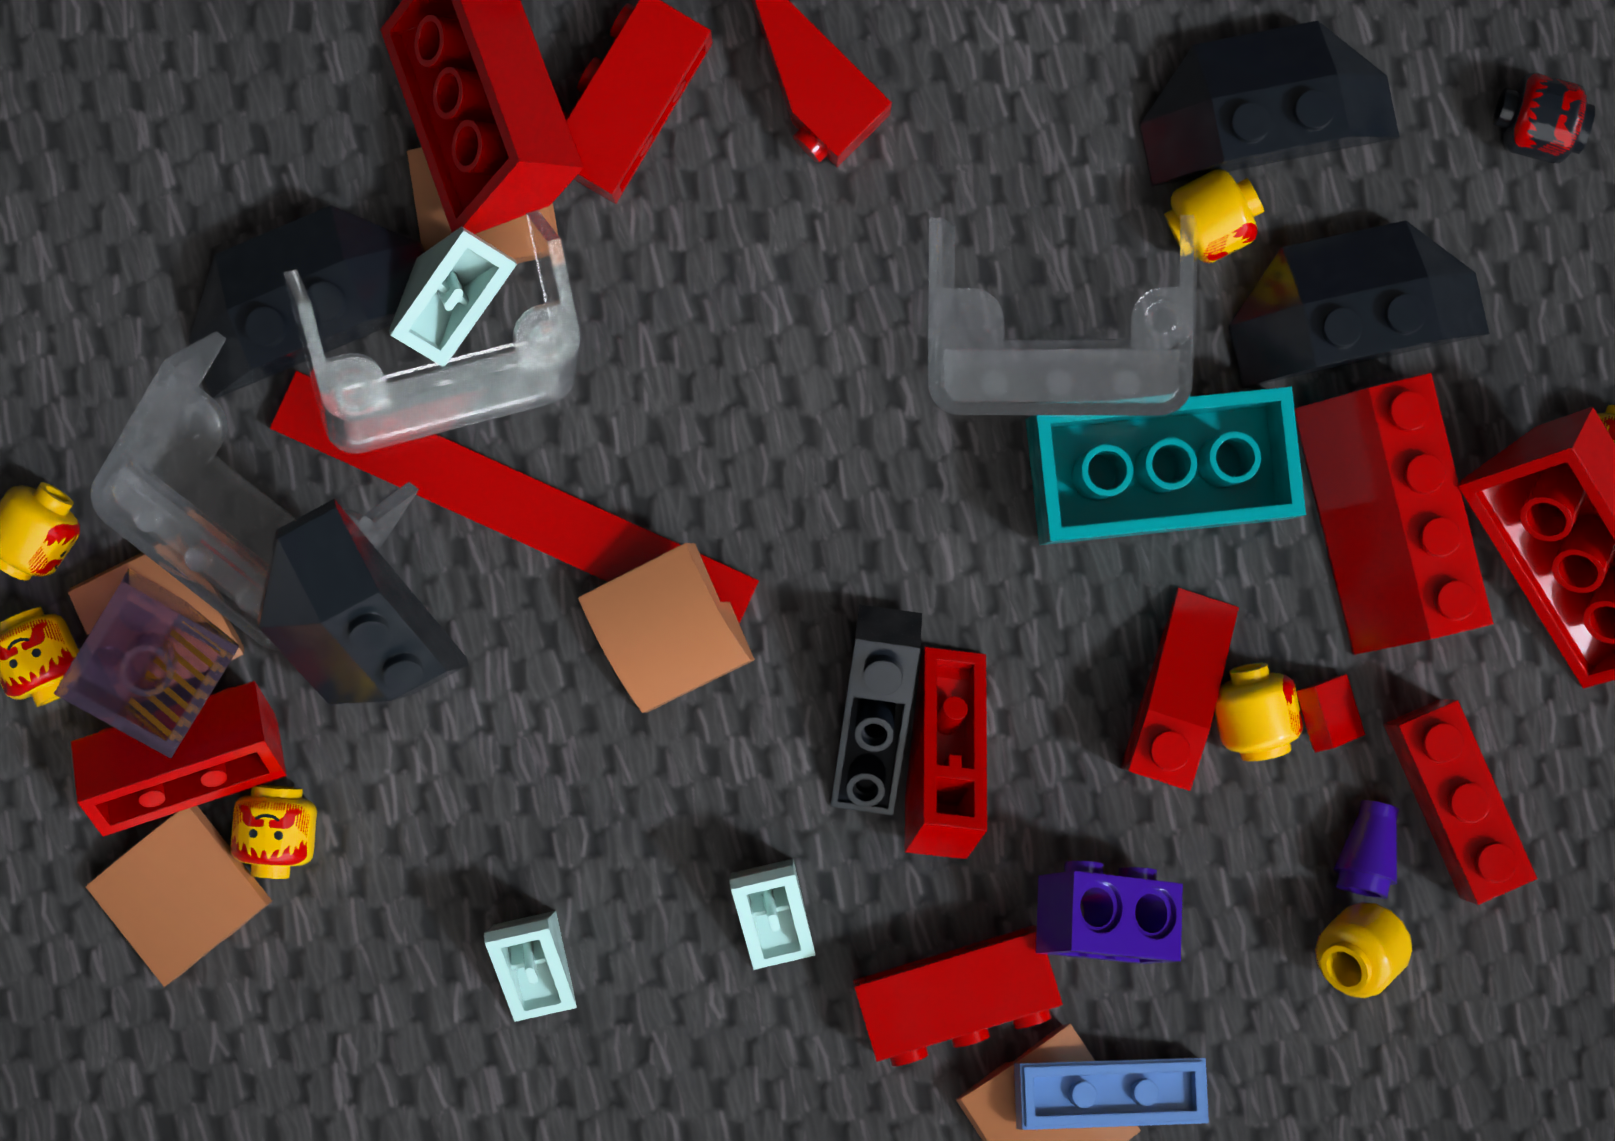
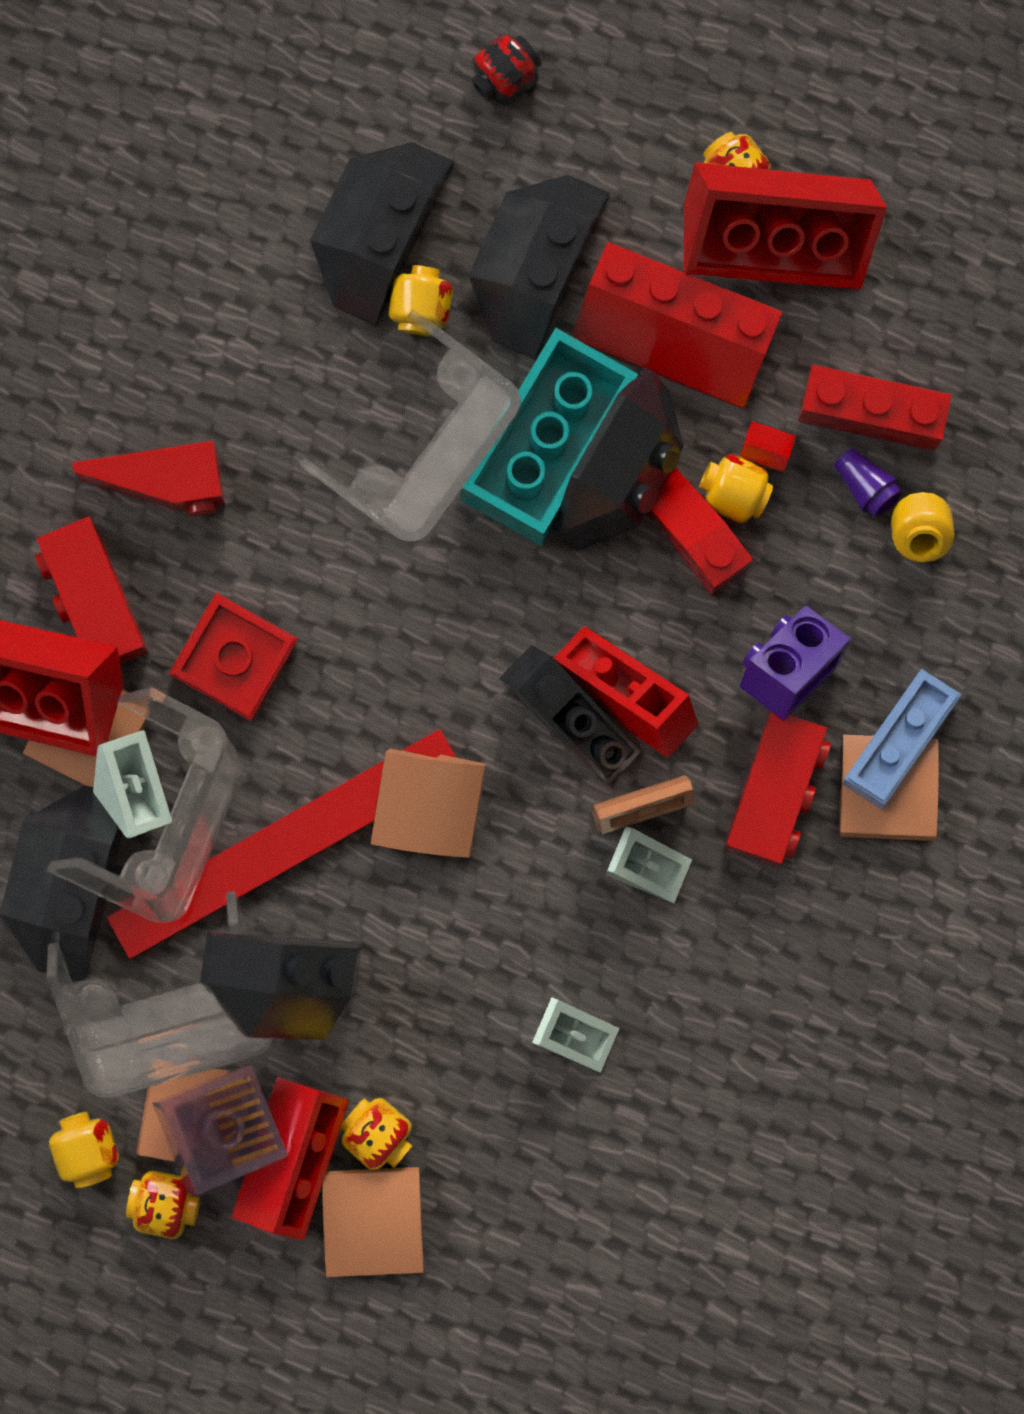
camera: 50 degrees left, 5 degrees down
(674, 300) = (233, 657): none -> red plate
(832, 865) = (643, 804): none -> nougat slope
(1192, 571) = (622, 465): none -> black wedge

